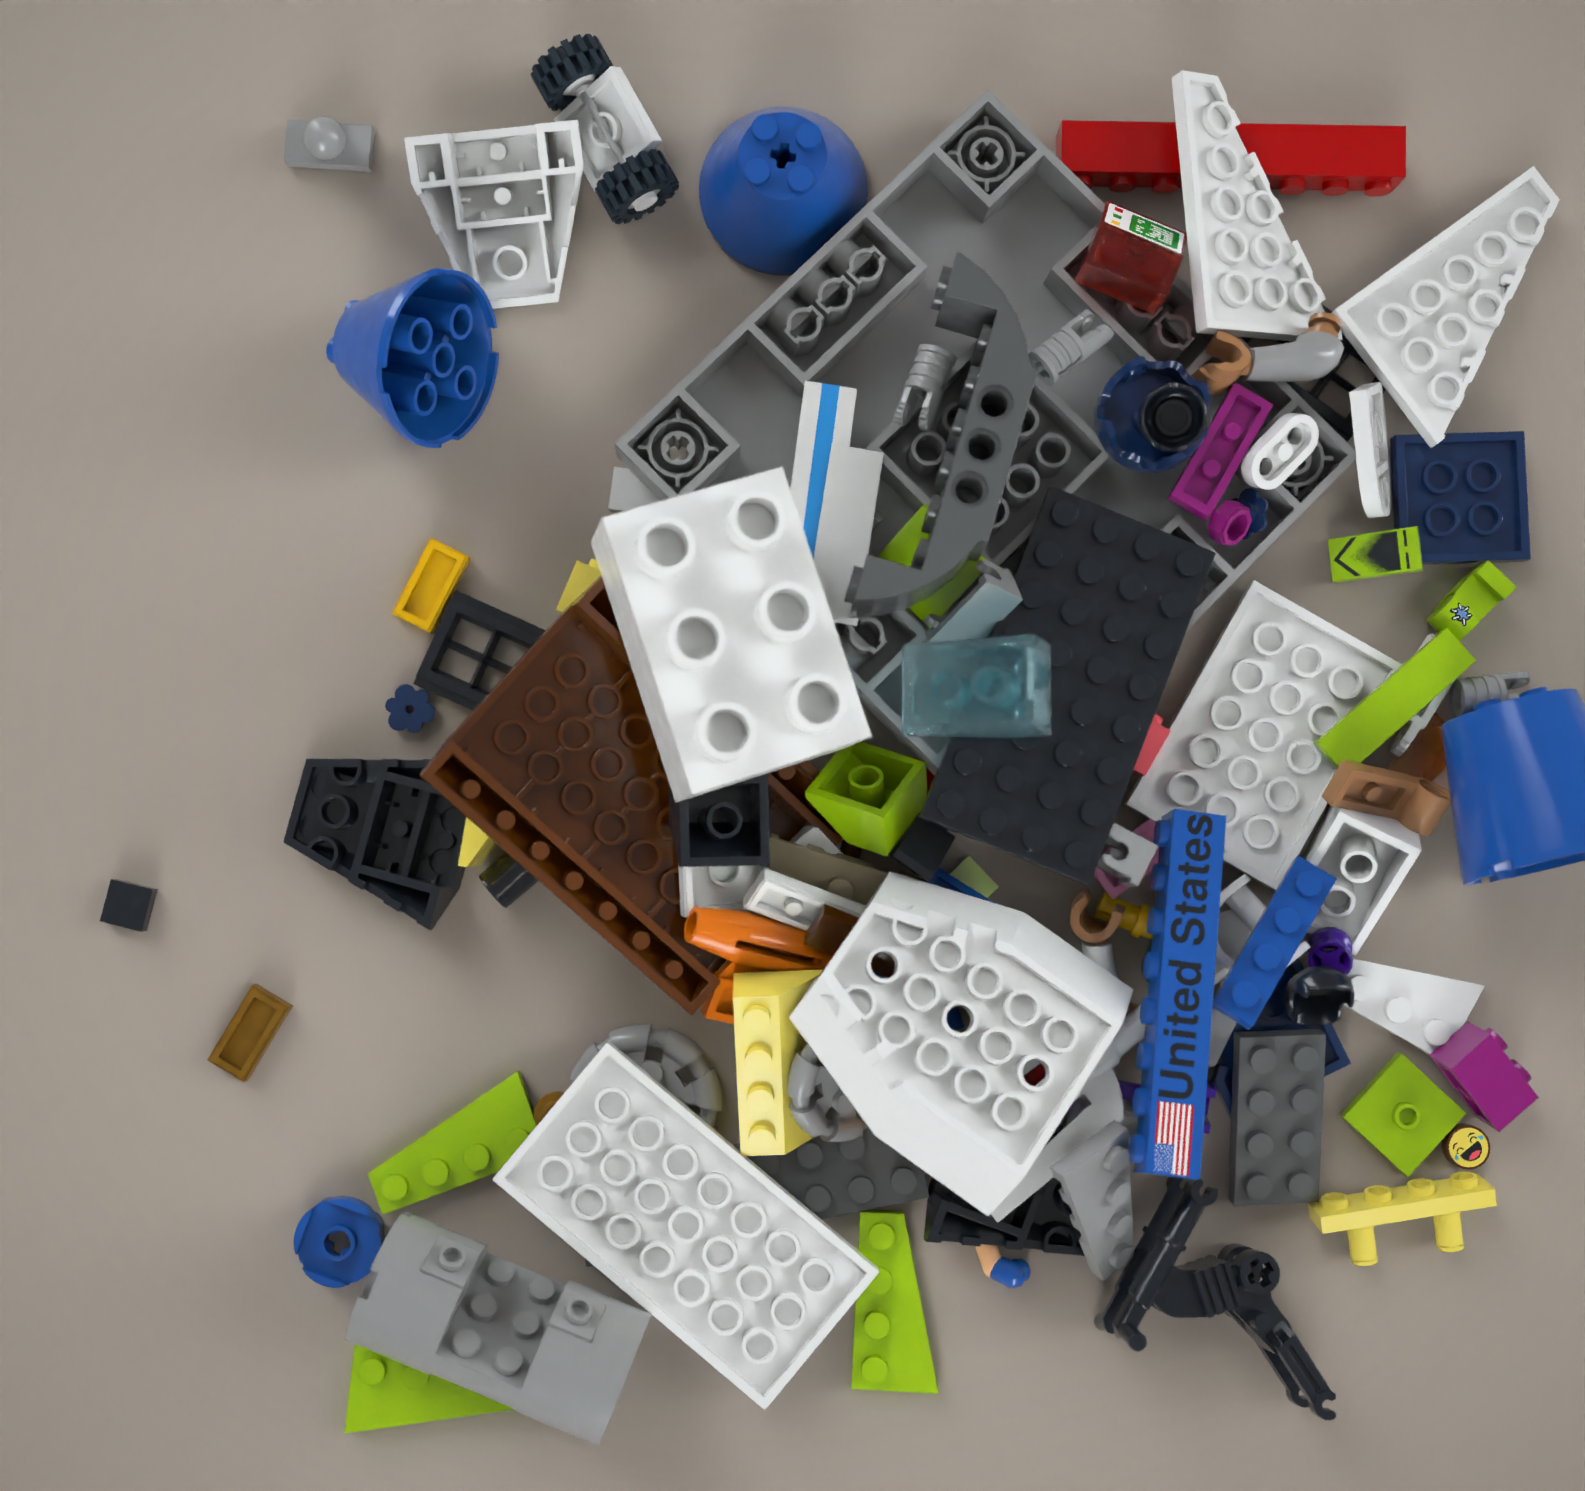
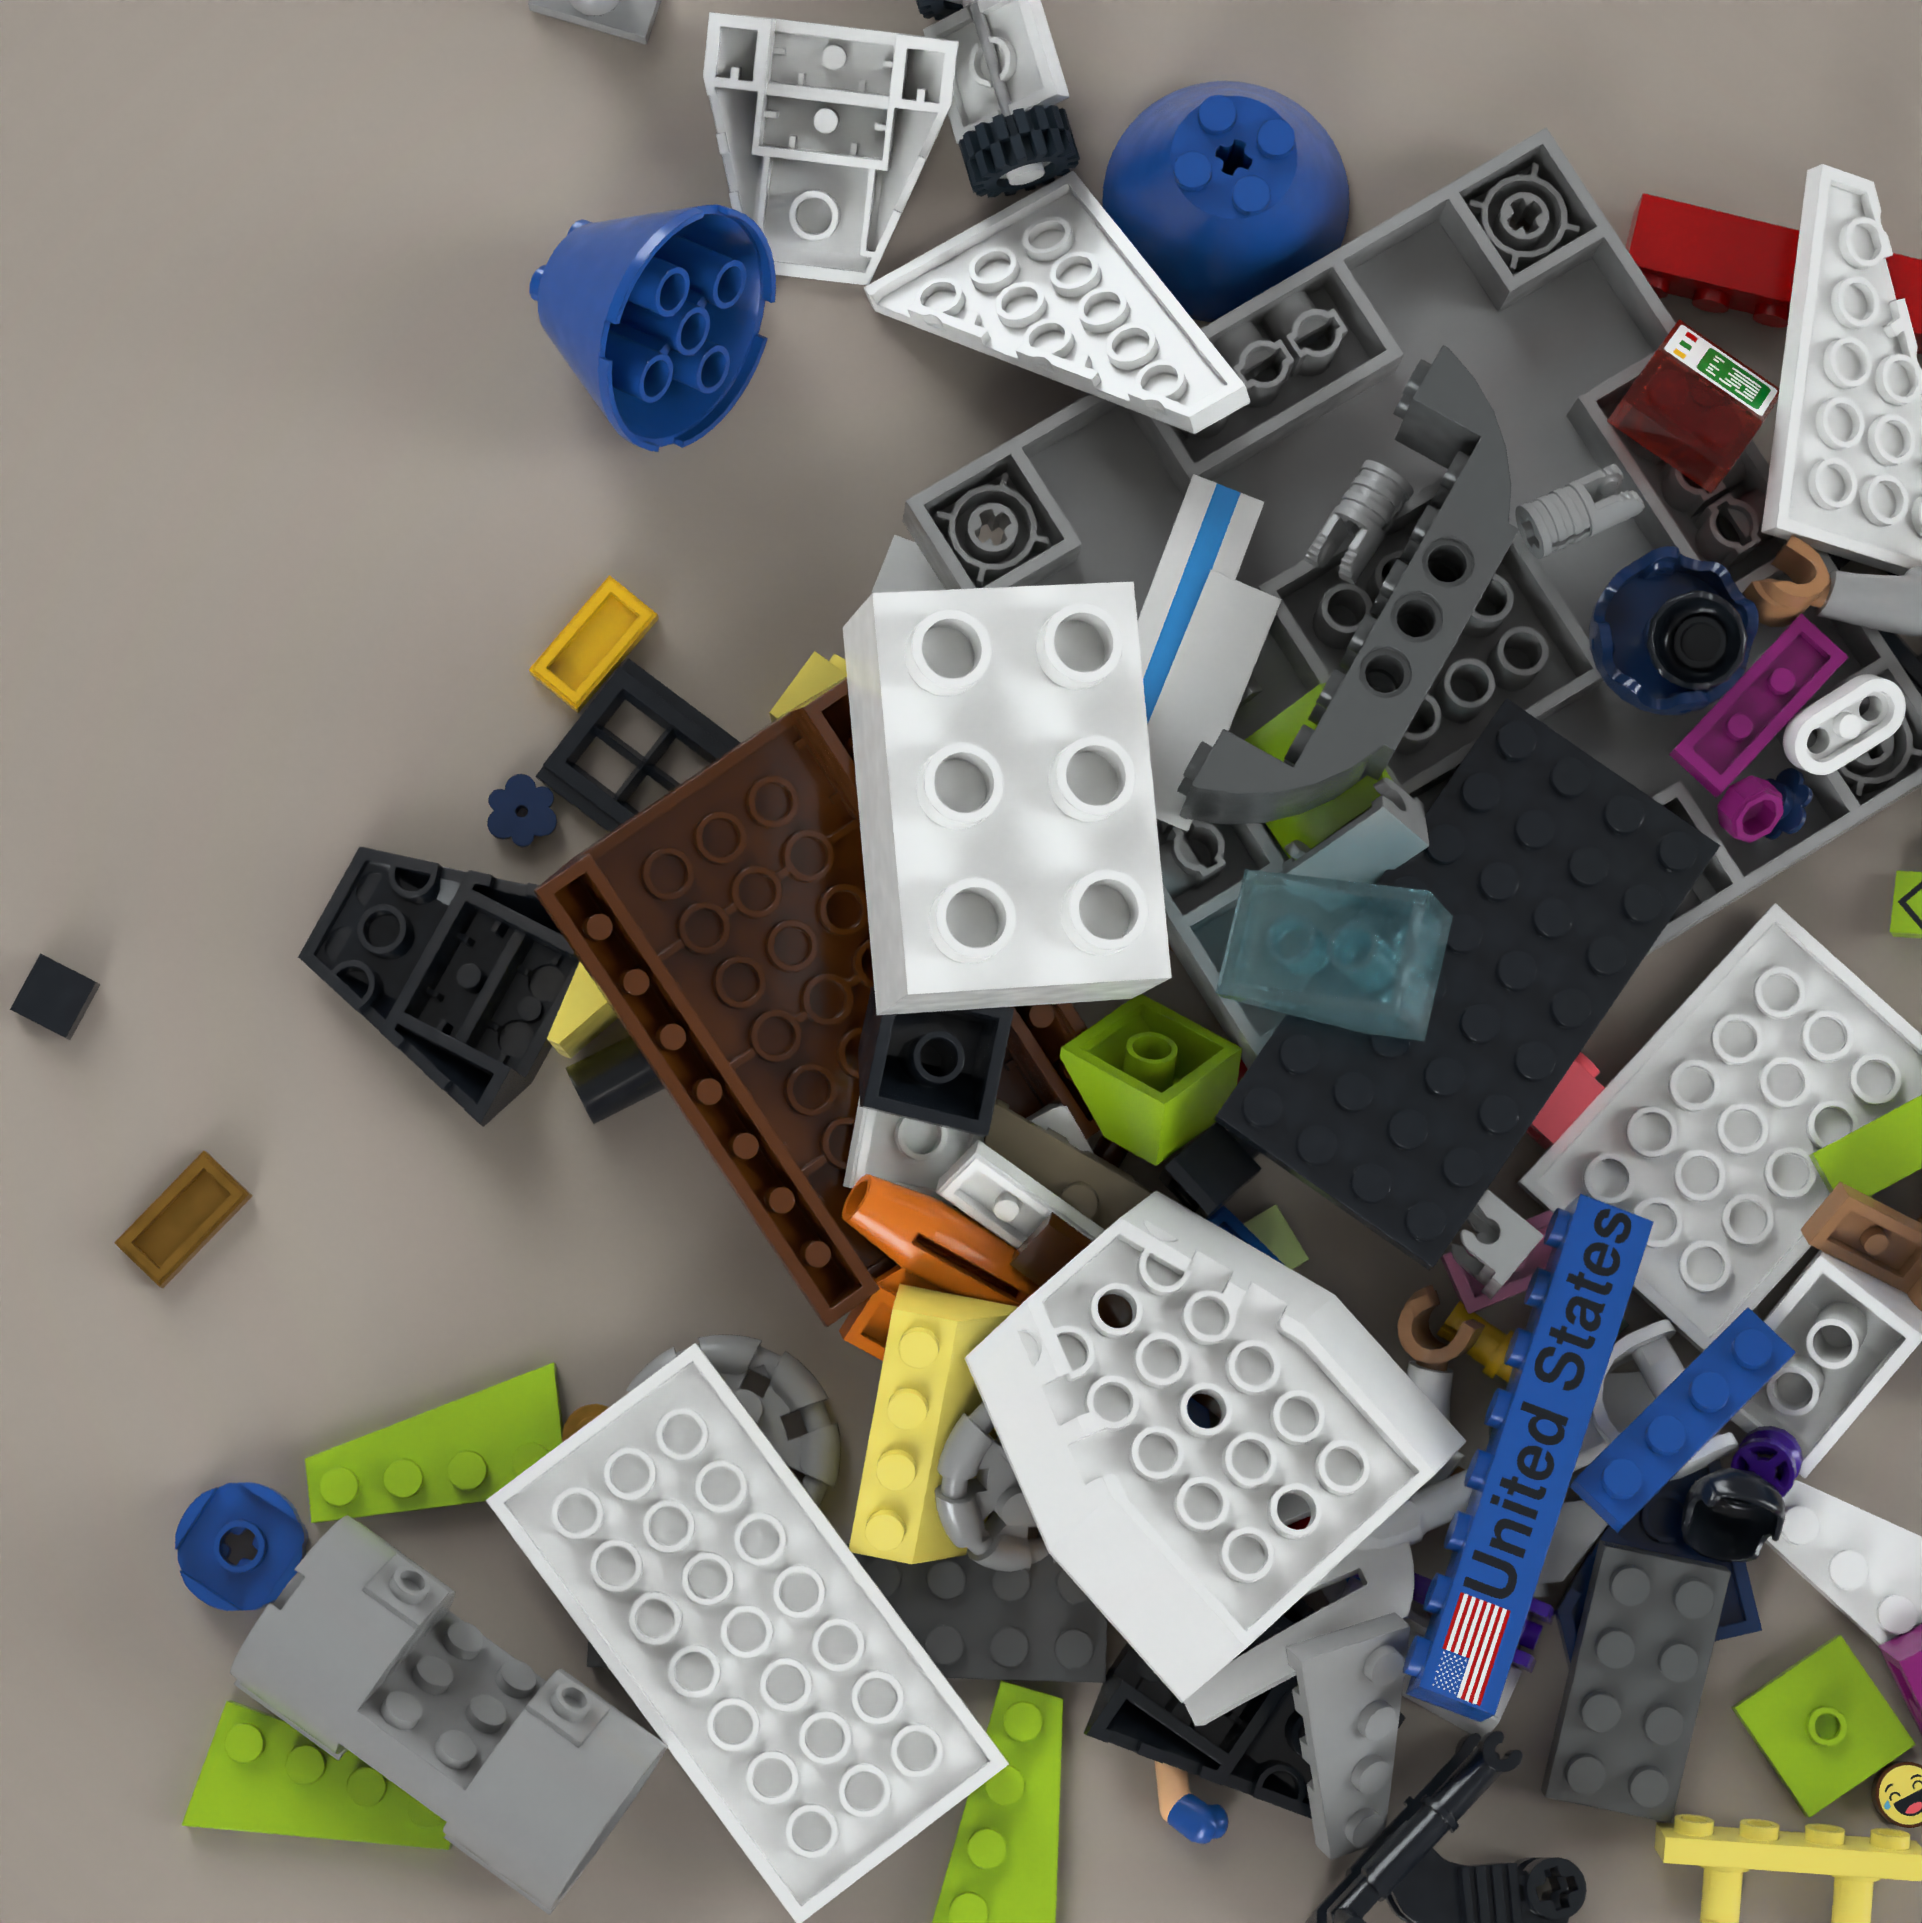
camera: 15 degrees right, 5 degrees down
(697, 282) = (1069, 300): none -> white wing

